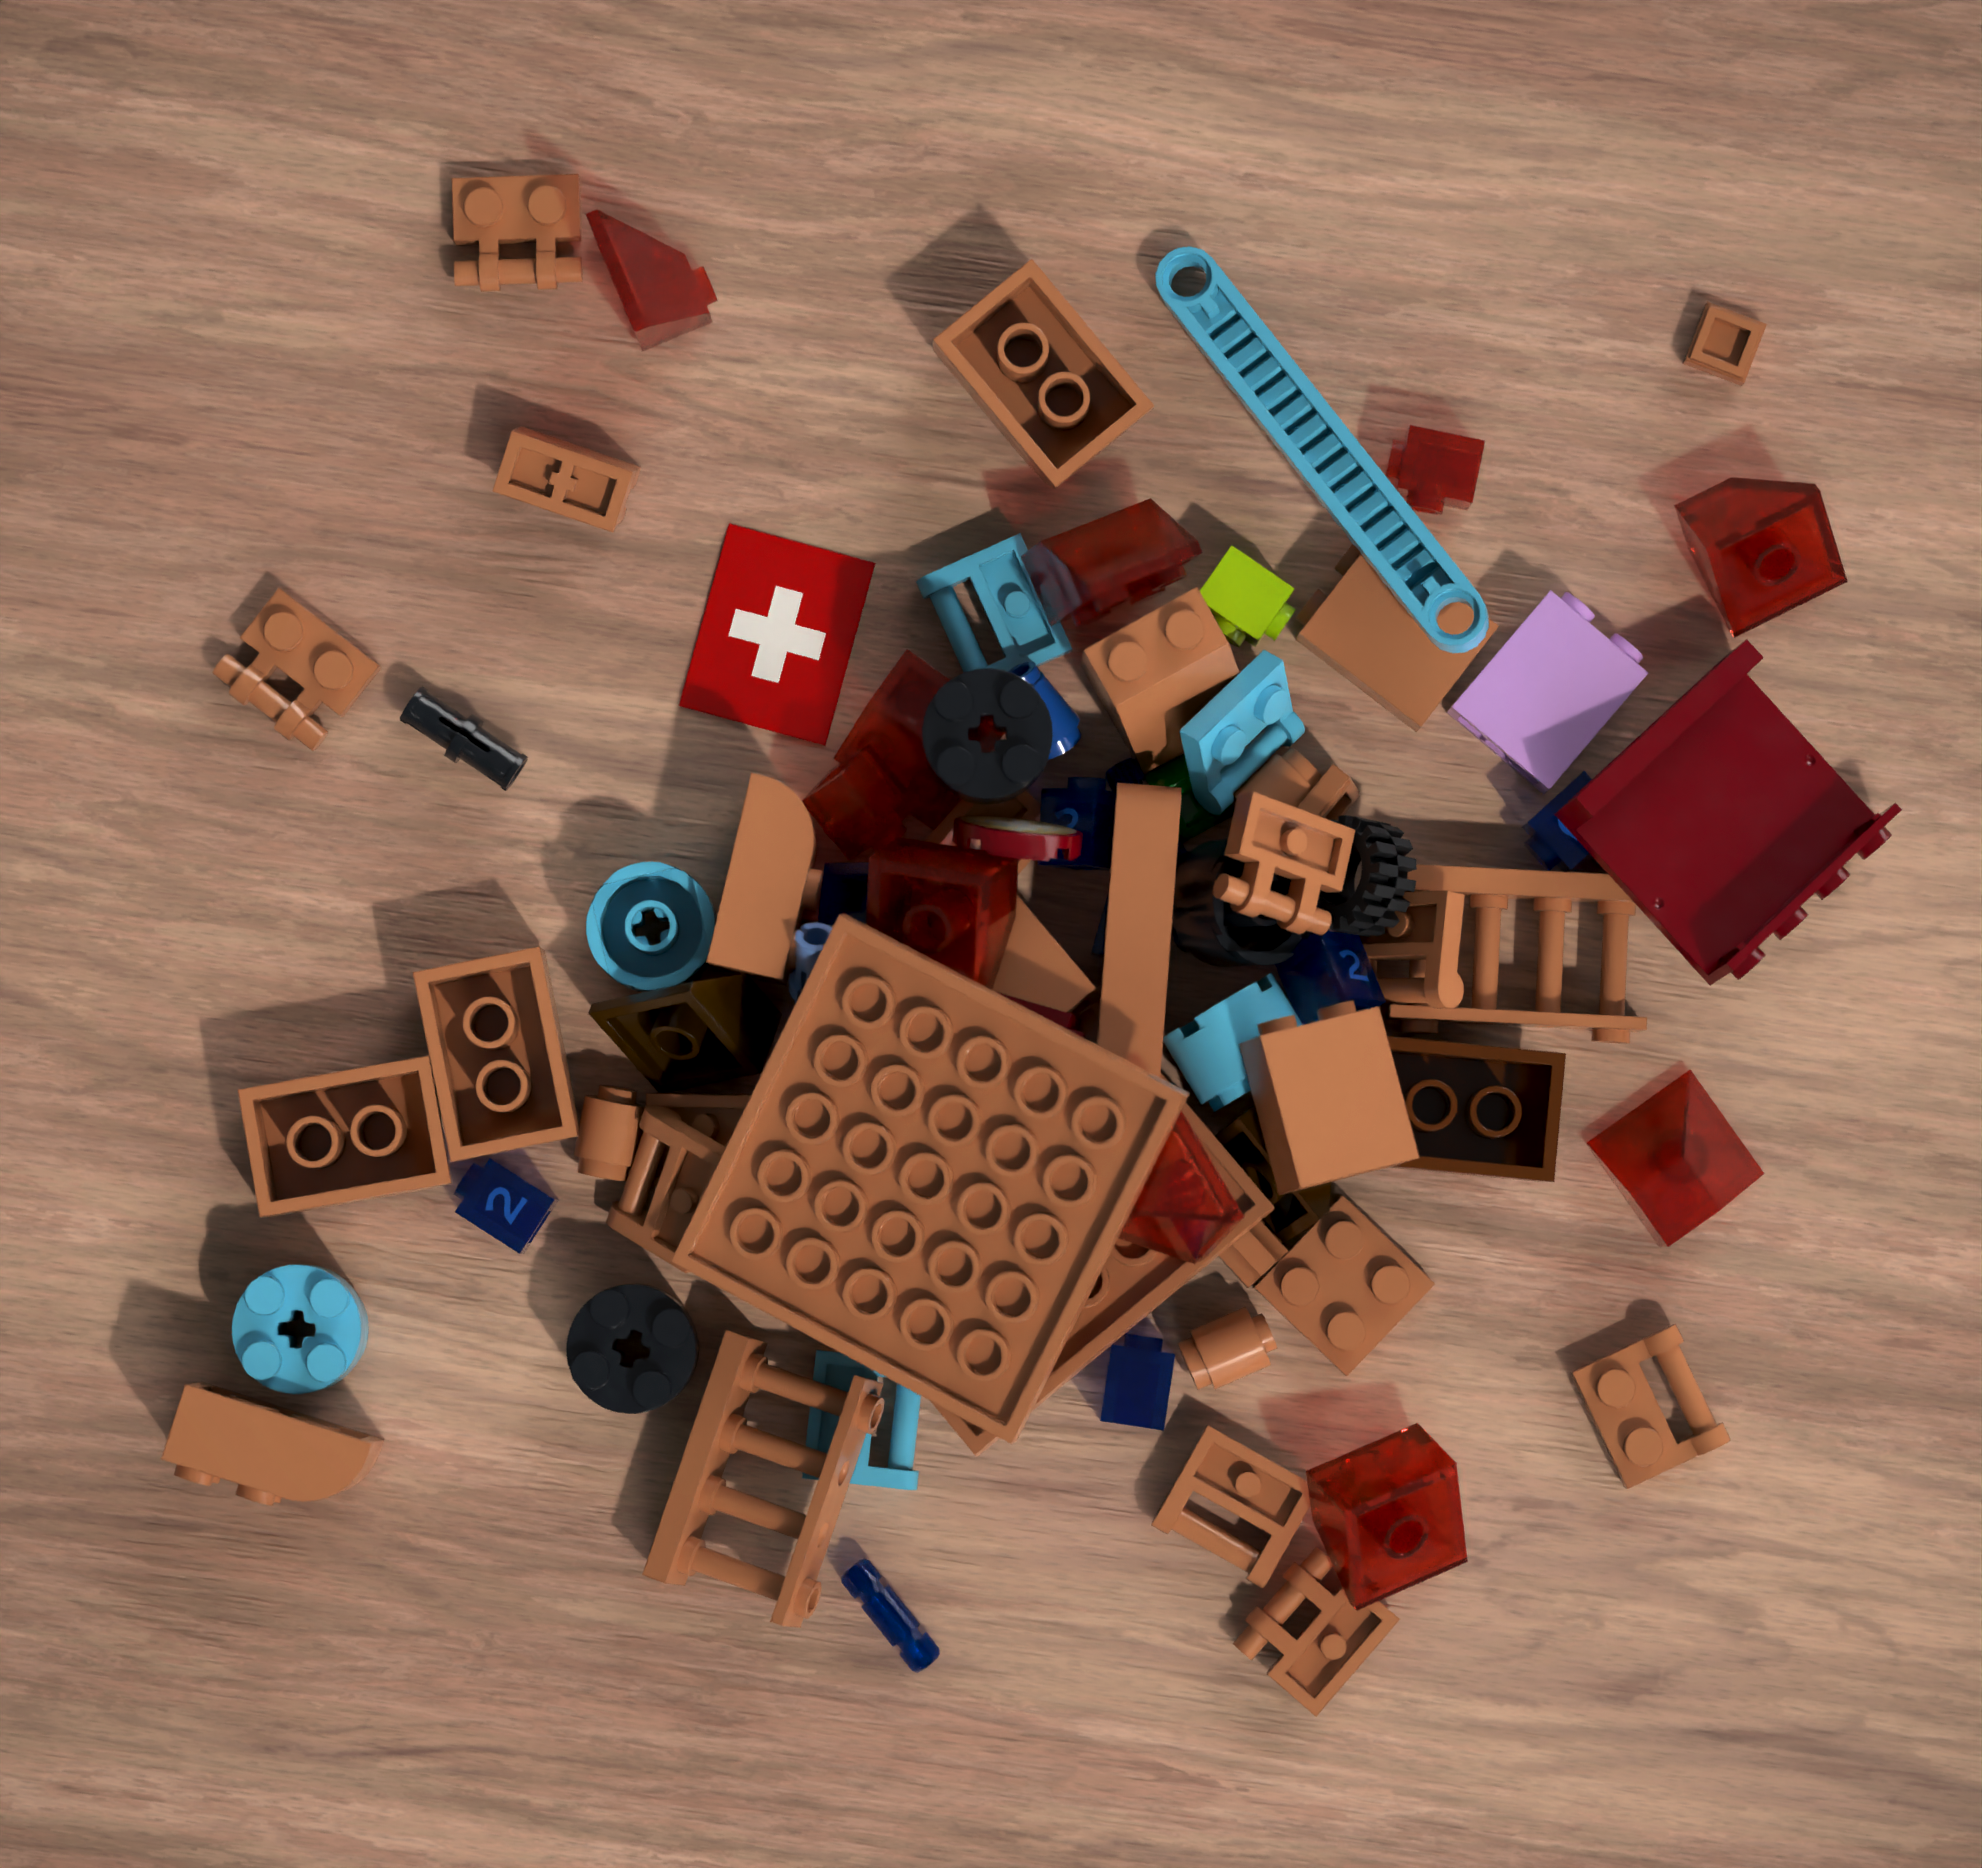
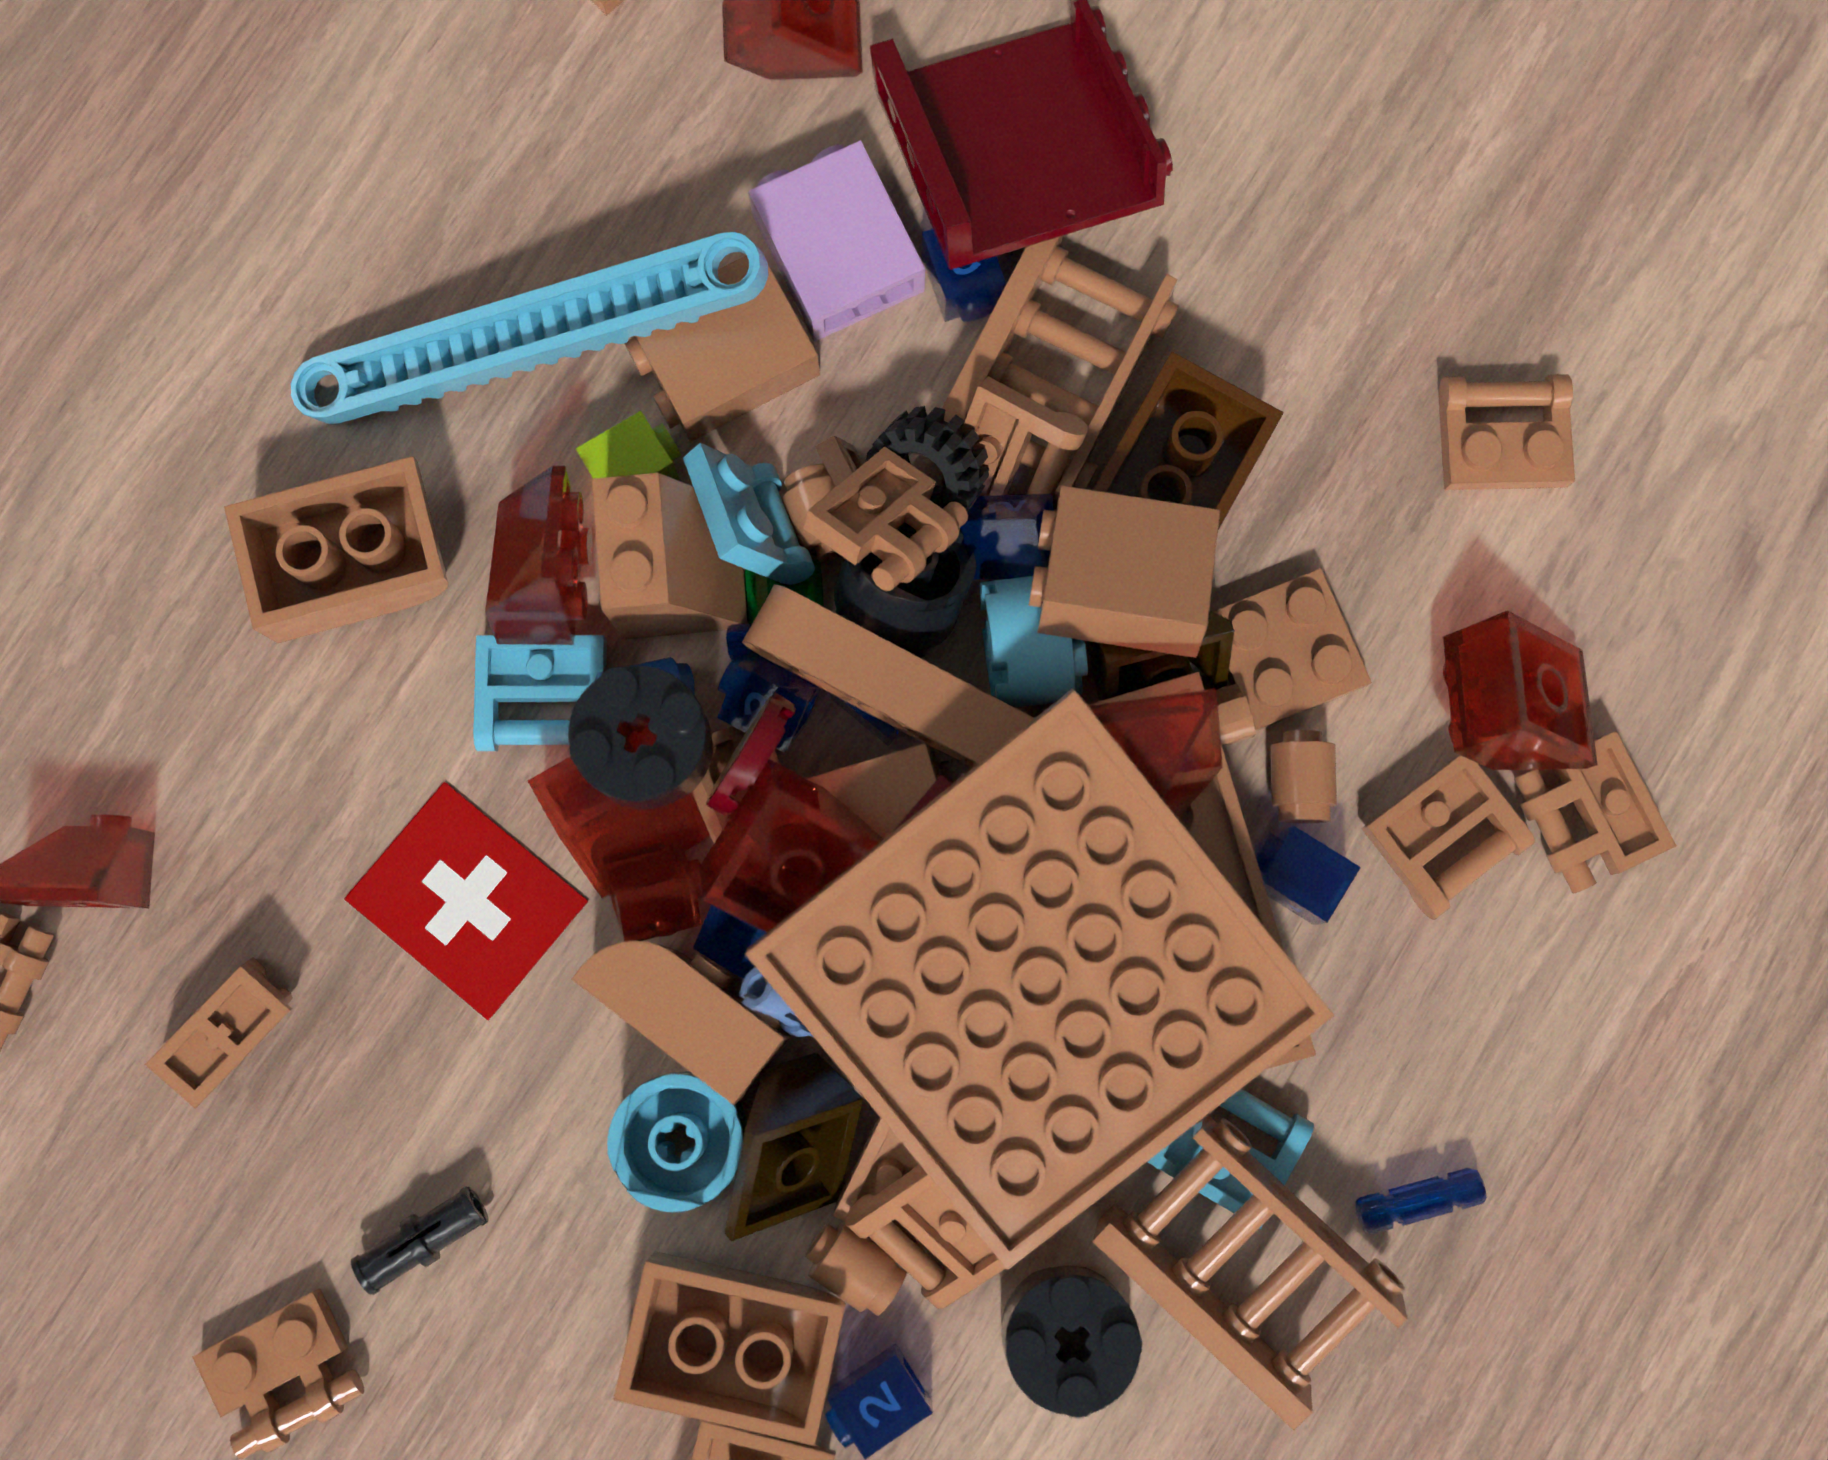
camera: 65 degrees left, 5 degrees down
(1435, 469) = (593, 239): clear red brick -> none
(1675, 1159) = (1301, 317): clear red slope -> none

